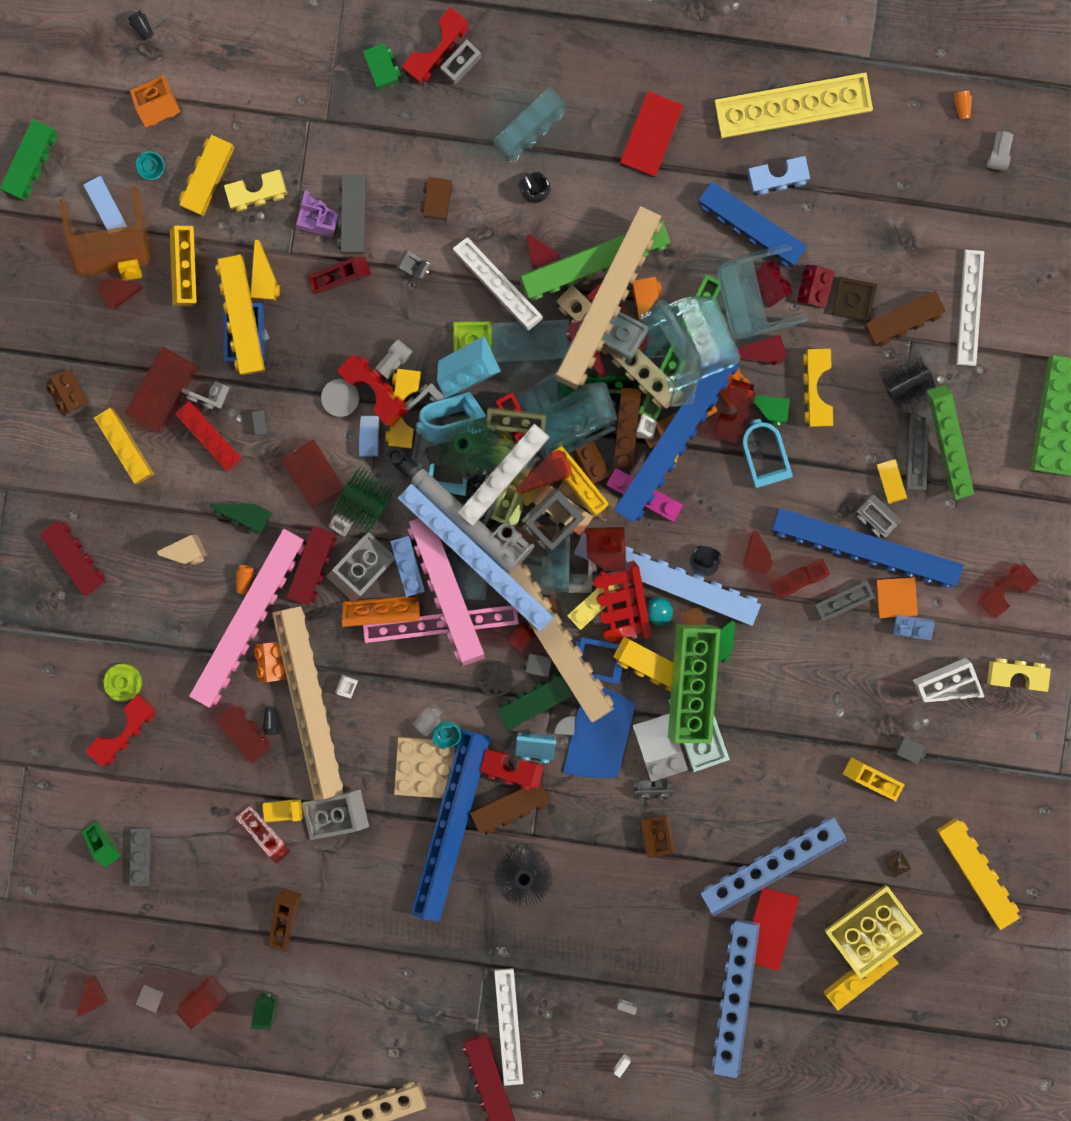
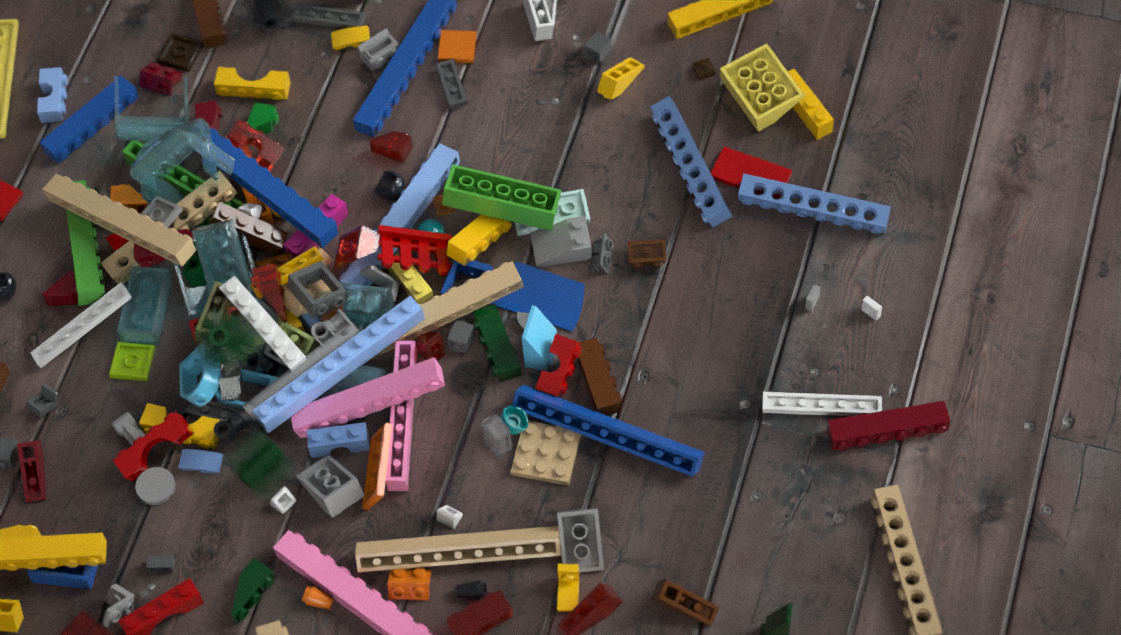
camera: 85 degrees left, 30 degrees down
(311, 566) = (318, 530): dark red brick -> none
(313, 473) = (224, 516): clear red brick -> none
(424, 391) = (171, 398): light grey bracket -> none
(466, 368) = (154, 360): medium azure slope -> none
(531, 882) = (668, 367): black piece -> none
(772, 284) = (151, 108): dark red bracket -> none
(773, 476) = (303, 117): medium azure window -> none
(799, 578) = (422, 113): clear red arch -> none
(913, 627) = (486, 34): medium blue hinge -> none

